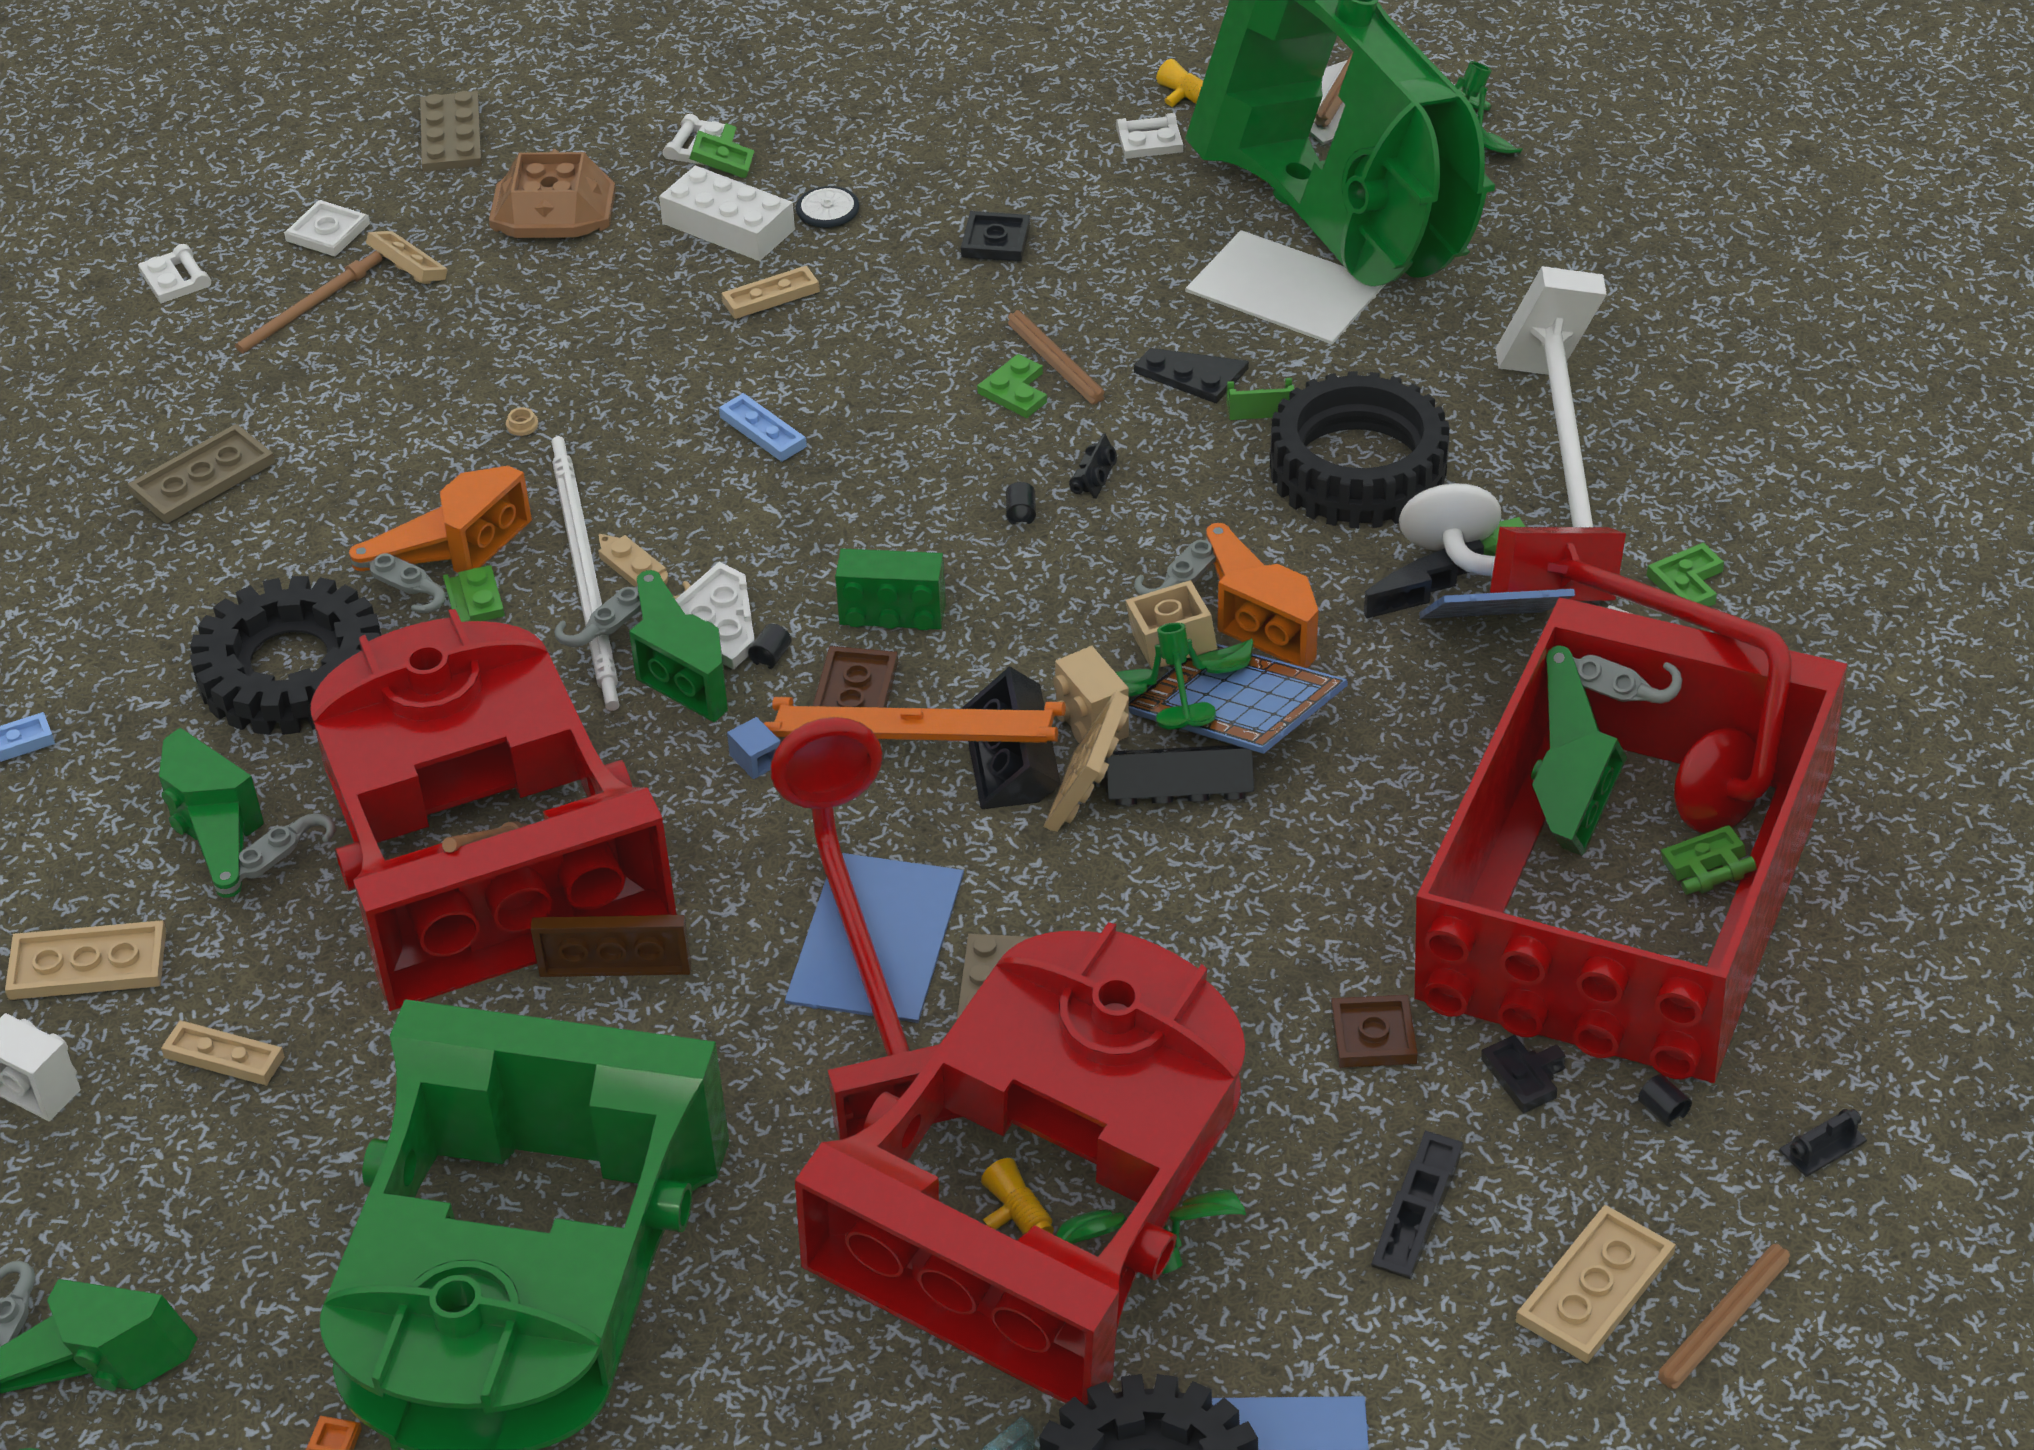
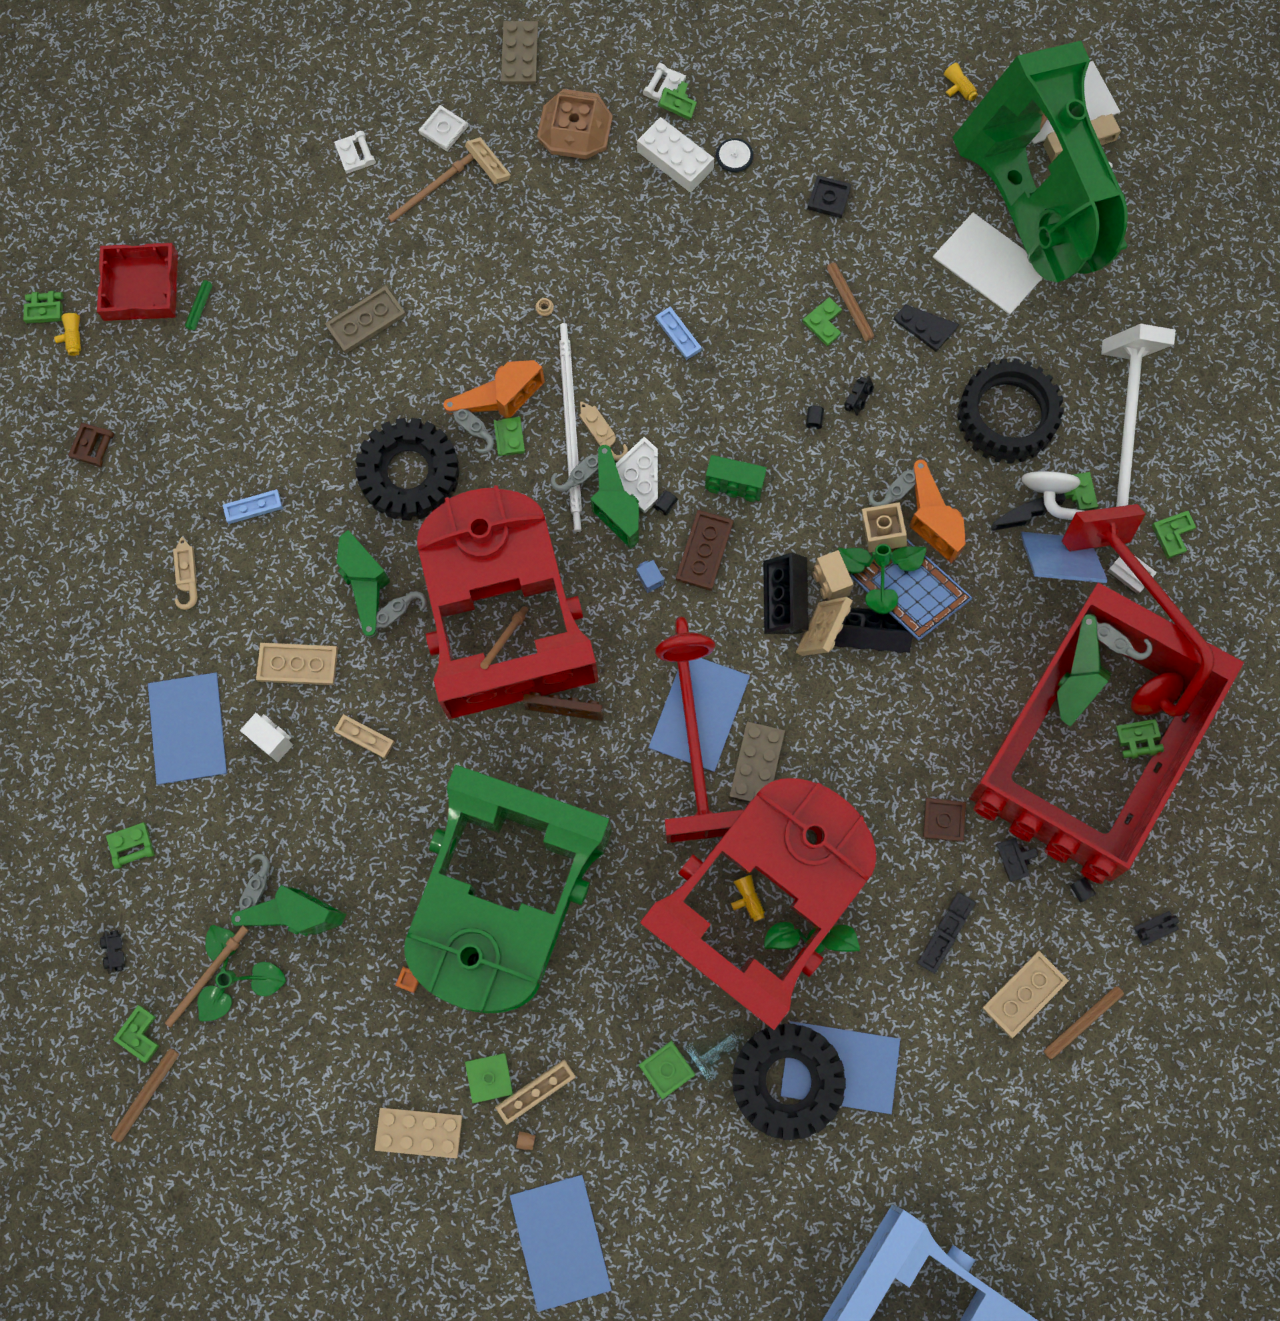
camera: 10 degrees right, 30 degrees up
(770, 292) = (694, 223): tan plate -> none
(929, 722) = (736, 581): orange piece -> none
(1149, 143) = (932, 127): white plate -> none
(1255, 403) = (961, 358): bright green hinge -> none
(1473, 88) = (1132, 121): green plant -> none

